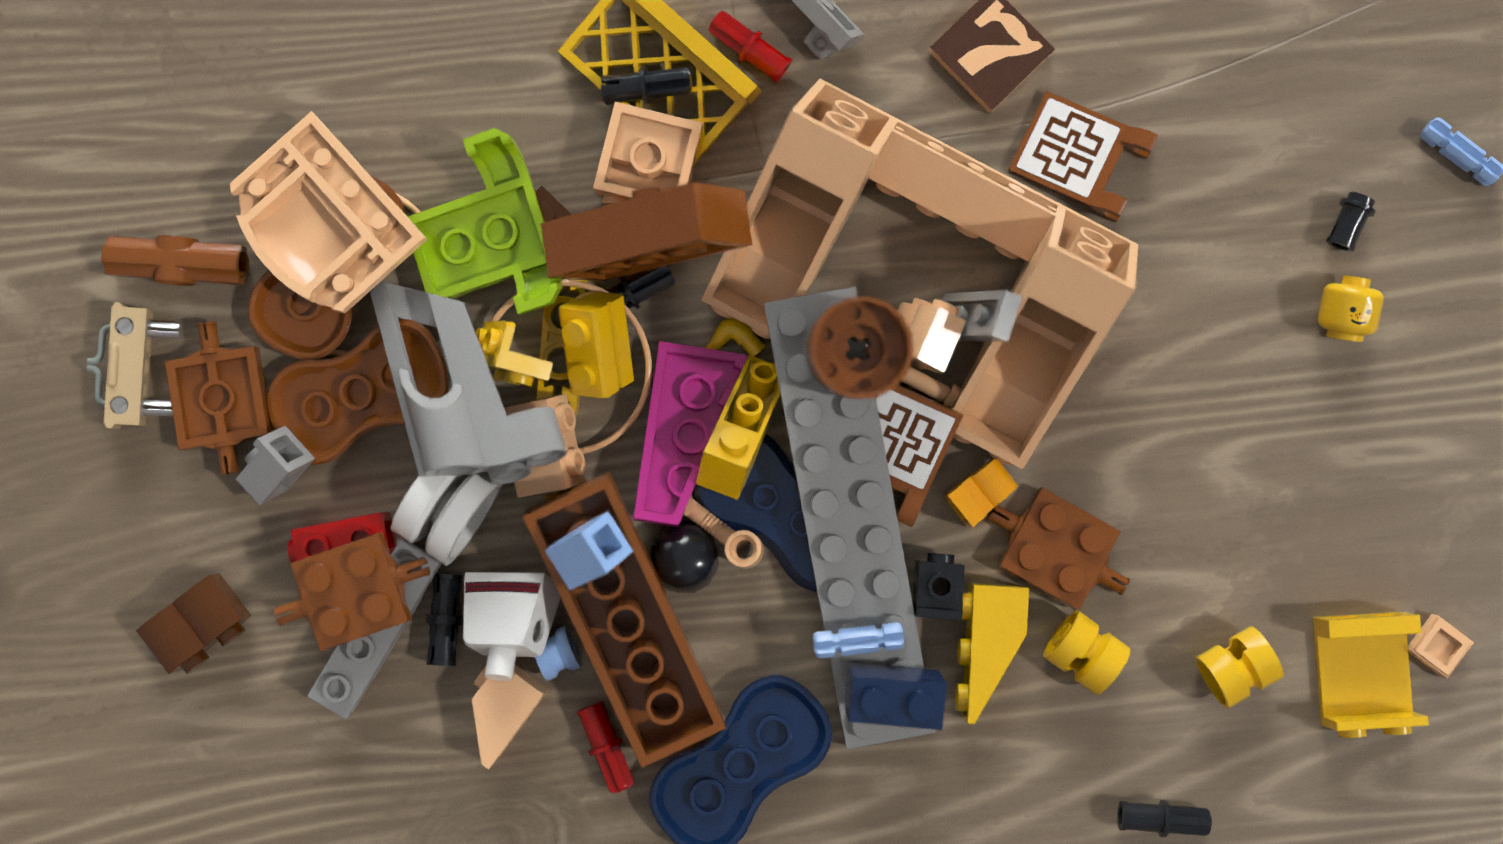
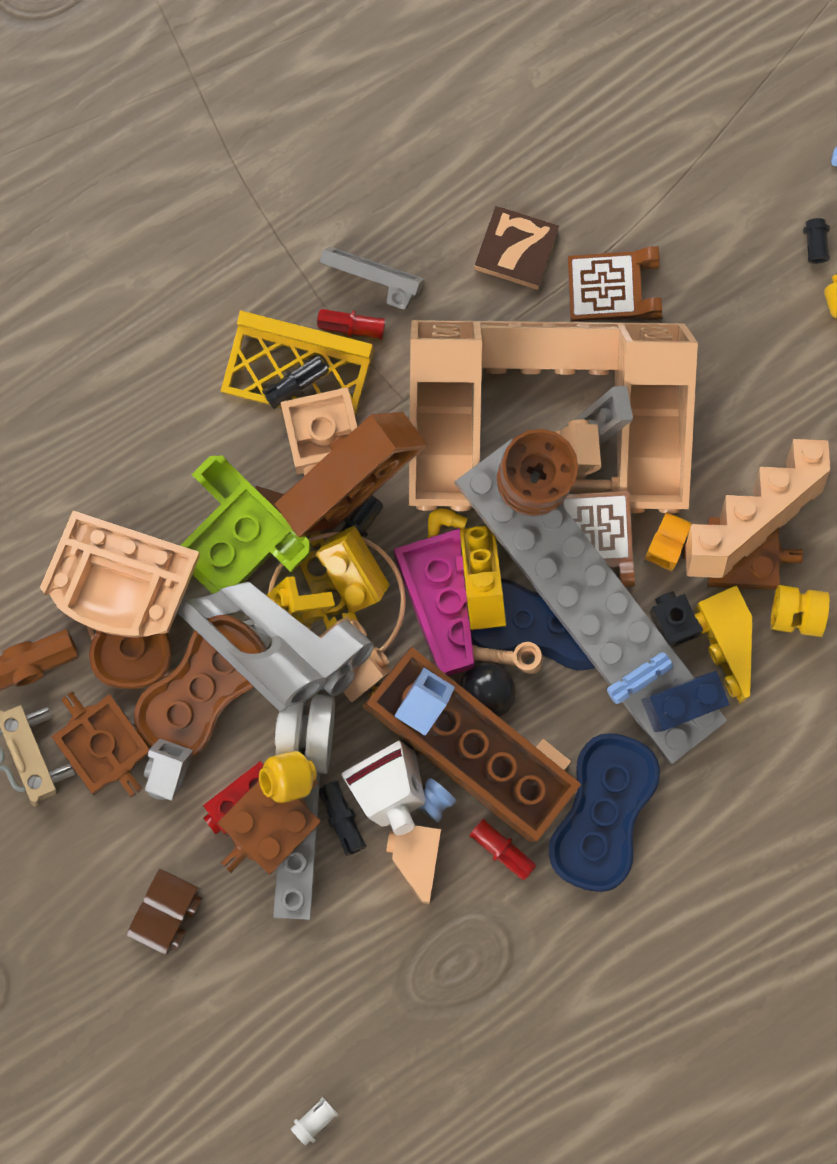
camera: 25 degrees left, 10 degrees down
(389, 556) = (287, 777): none -> yellow head
(713, 673) = (553, 754): none -> light nougat tile
(1085, 522) = (751, 519): none -> light nougat brick

